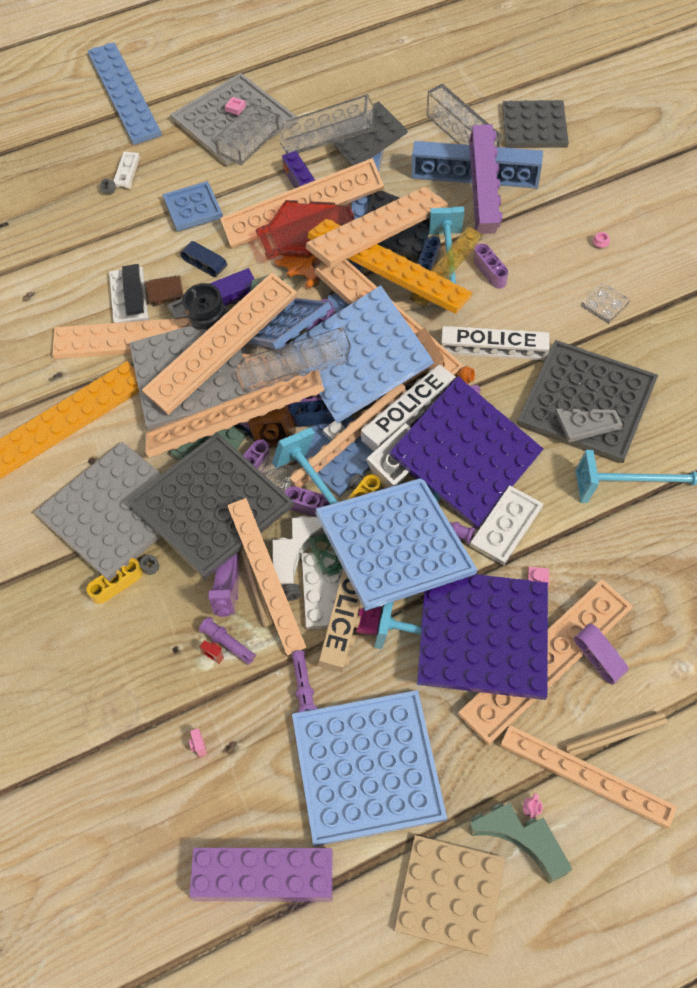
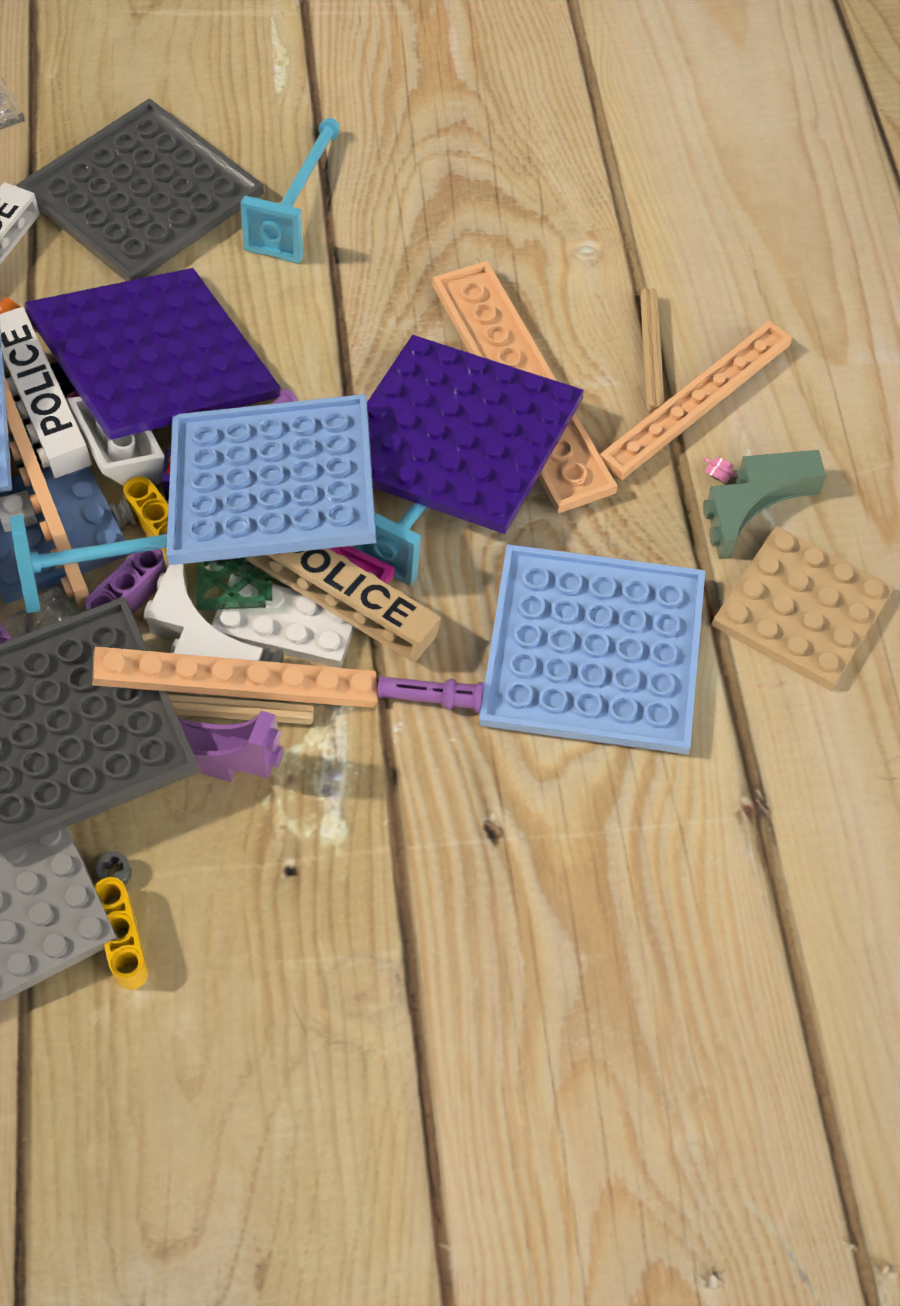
camera: 75 degrees left, 0 degrees up
(197, 742) = (474, 868): bright pink plate -> none
(212, 651) = (326, 807): red plate -> none
(220, 635) = (300, 789): medium lavender pin -> none
(262, 874) = (712, 831): medium lavender brick -> none
(506, 525) = (295, 352): white plate -> none
(538, 574) = (389, 348): bright pink plate -> none
(586, 424) = (187, 198): light grey wing -> none
(601, 653) = (541, 315): medium lavender beam -> none

